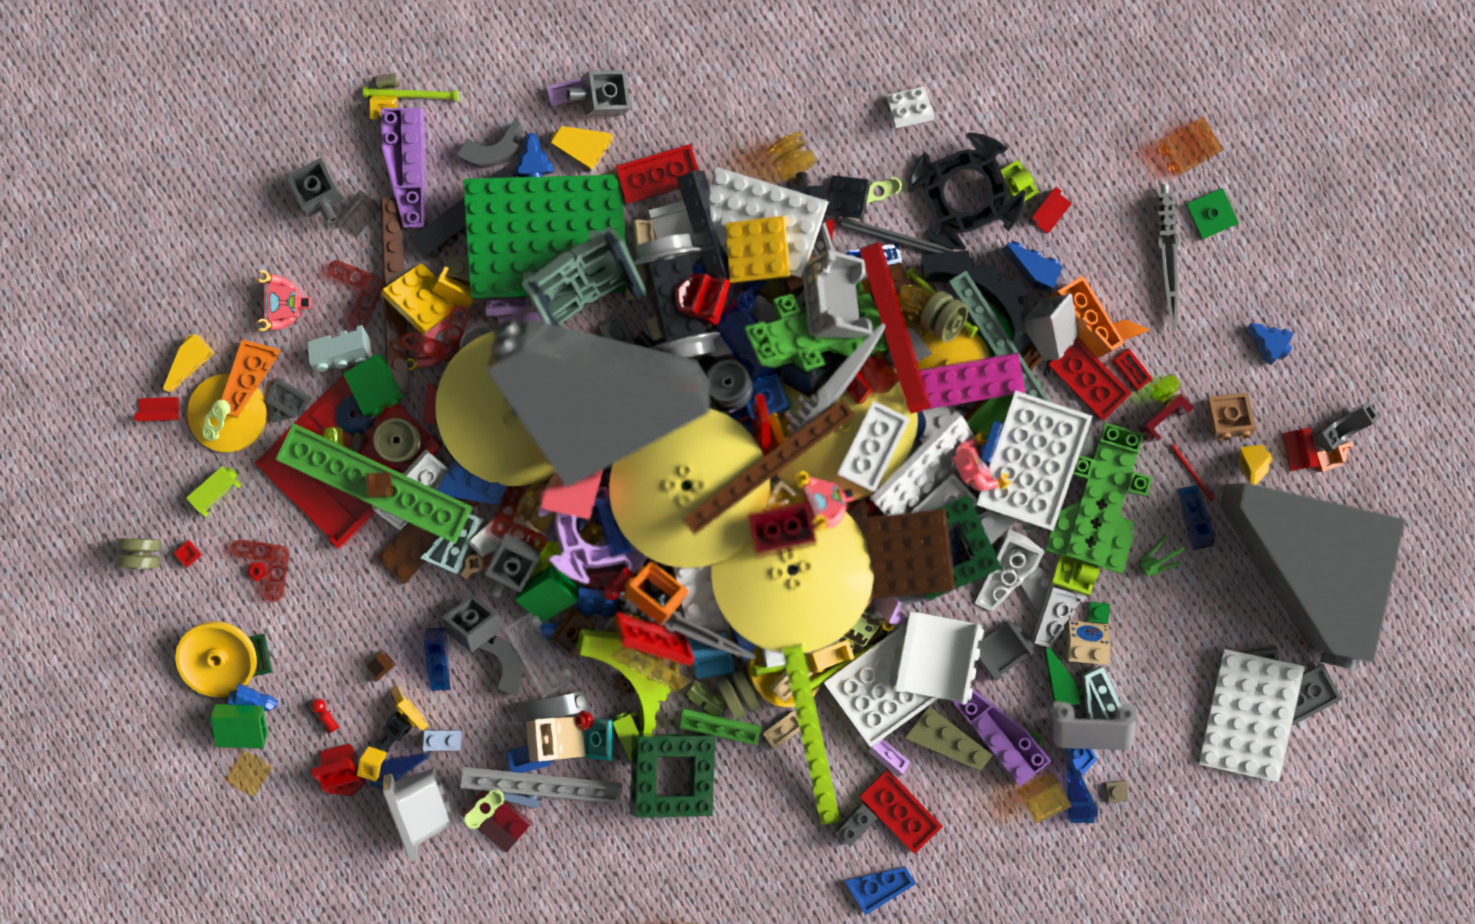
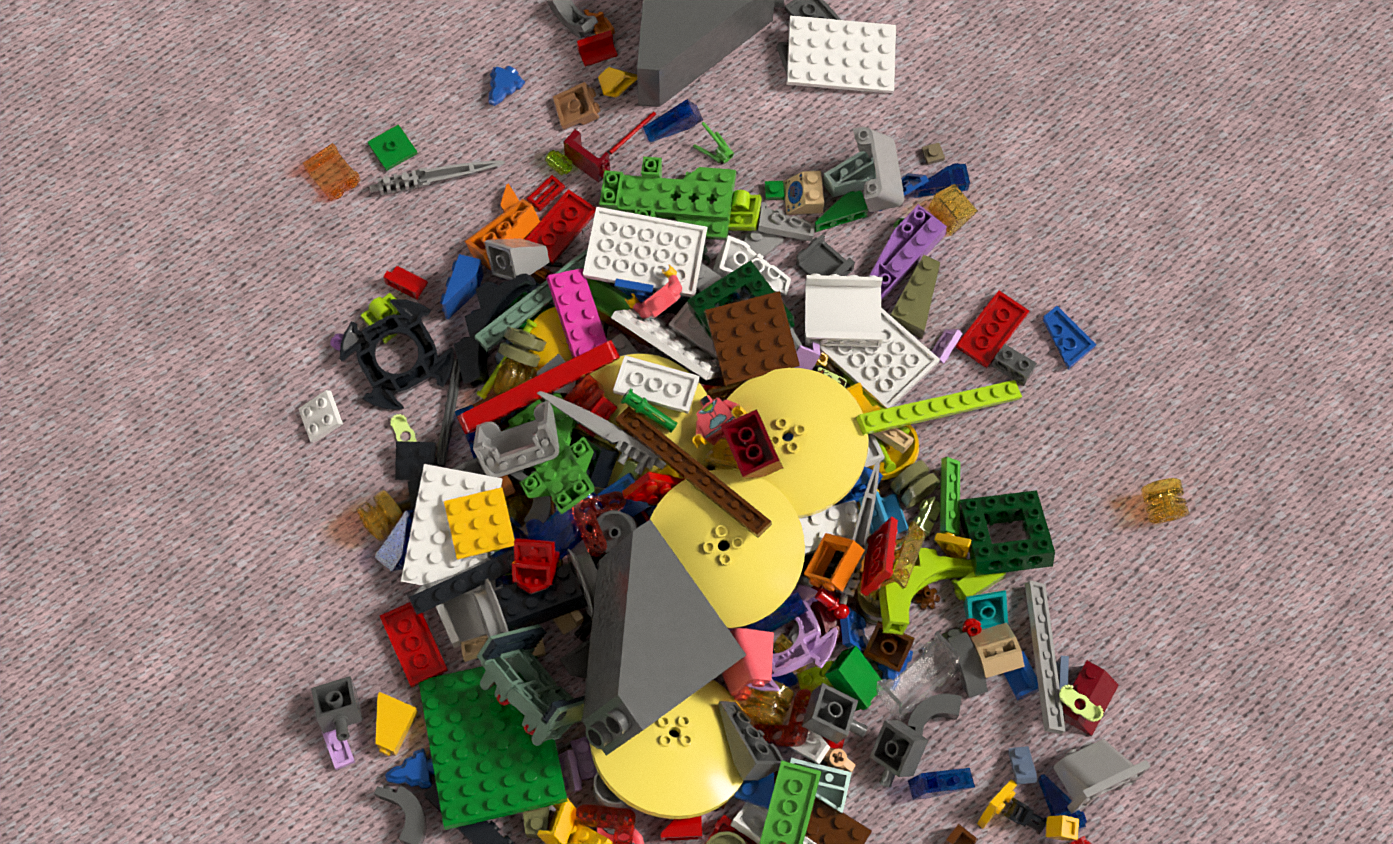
camera: 100 degrees left, 20 degrees down
(494, 479) = (749, 750): none -> dark grey wedge
(668, 718) = (952, 545): none -> yellow wing
(743, 358) = (589, 517): none -> clear red beam
(755, 166) = (394, 549): none -> clear blue slope
(782, 730) = (939, 442): tan plate -> none
(851, 427) = (639, 404): none -> green pin
(992, 132) = (336, 341): none -> medium lavender plate

